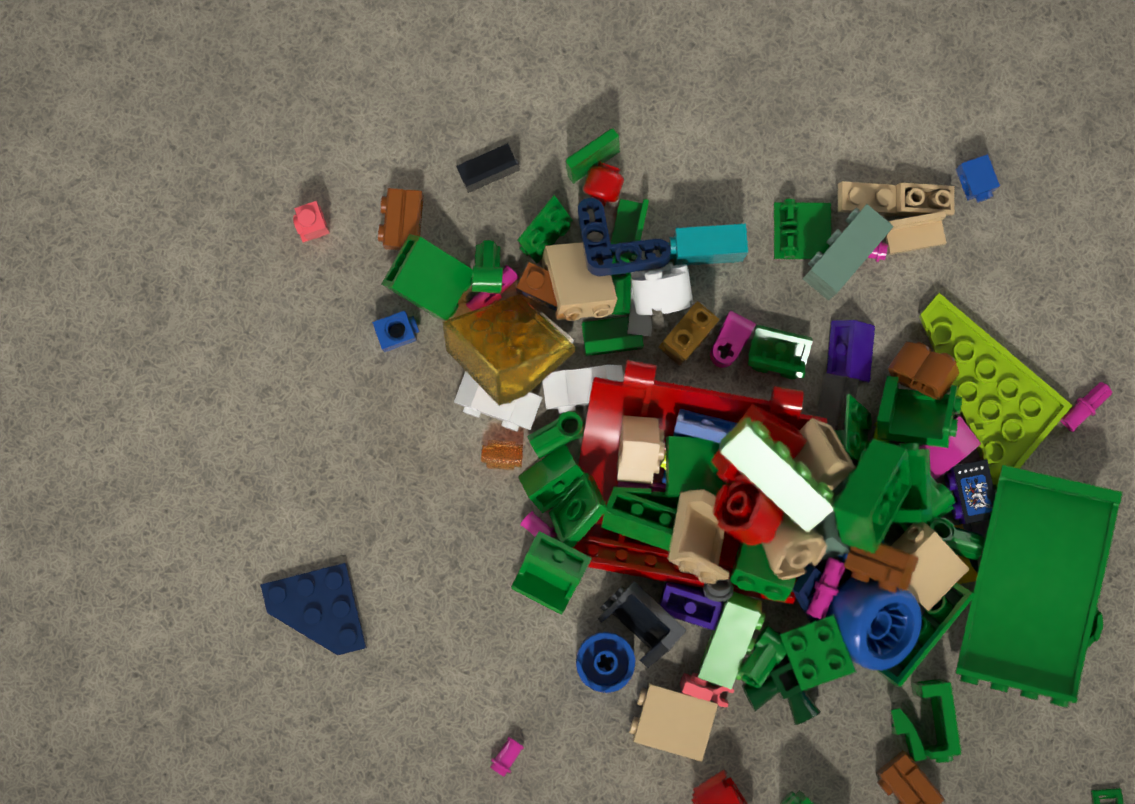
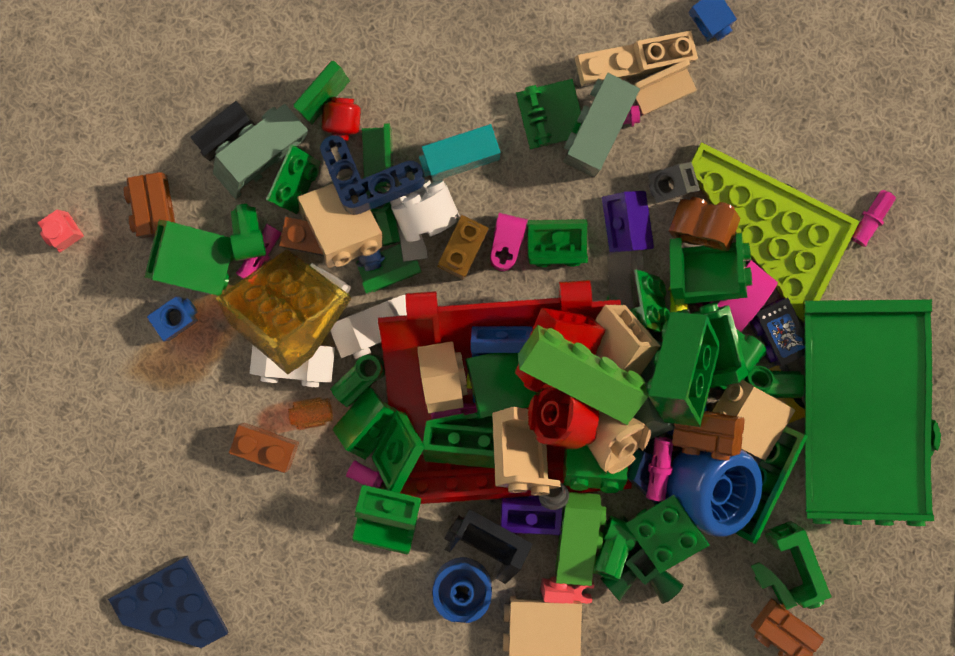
camera: 15 degrees left, 5 degrees up
(449, 475) = (264, 447): none -> dark orange brick
(517, 193) = (257, 149): none -> sand green wedge
(597, 325) = (371, 262): none -> dark blue plate
(913, 327) = (684, 182): none -> dark grey brick

